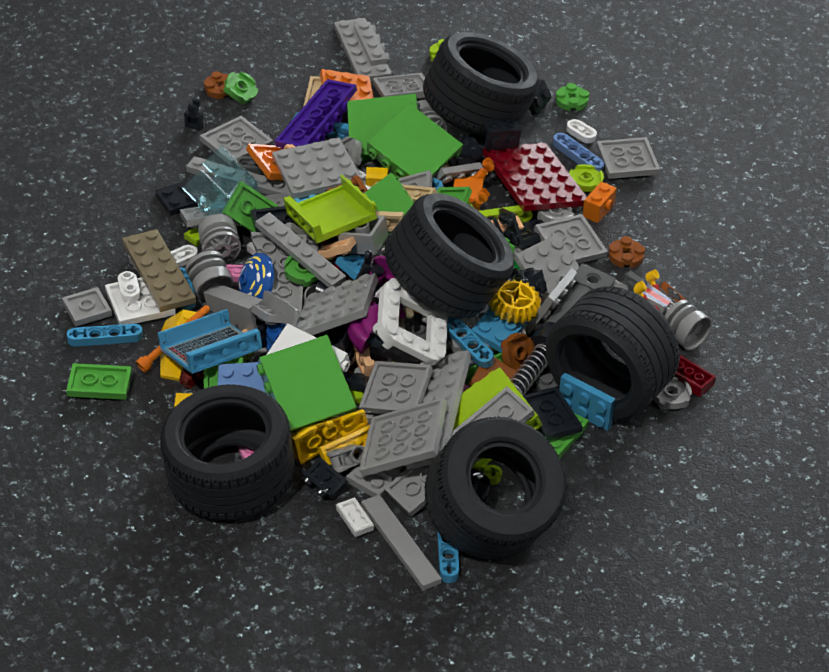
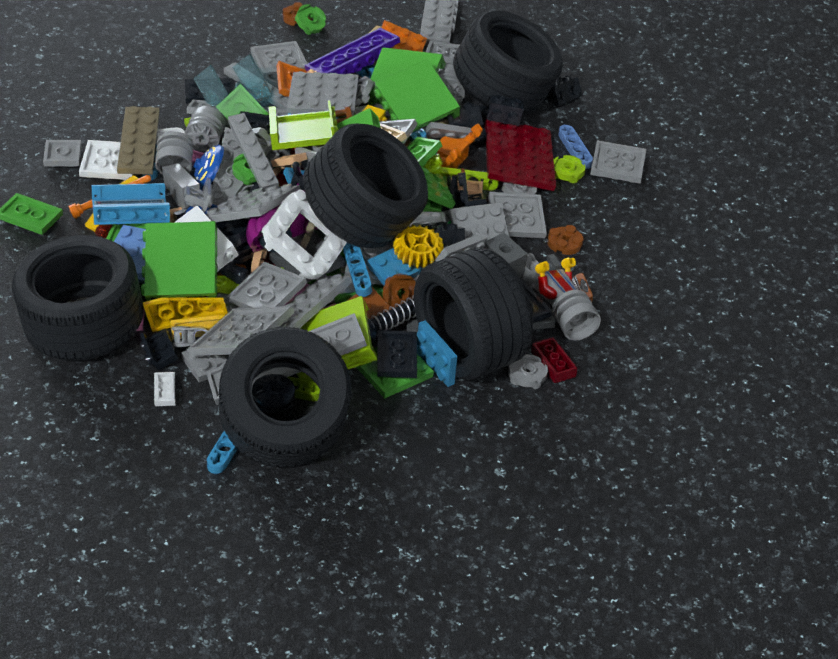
camera: 20 degrees right, 0 degrees up
(128, 286) = (104, 146): white plate -> none
(132, 332) = (43, 176): dark azure beam -> none
(192, 117) = (254, 34): black plate -> none
(401, 542) = (191, 424): light grey tile -> none
(572, 97) = (600, 100): bright green plate -> none
(581, 131) = (589, 129): white plate -> none
(599, 202) = (565, 190): orange brick -> none

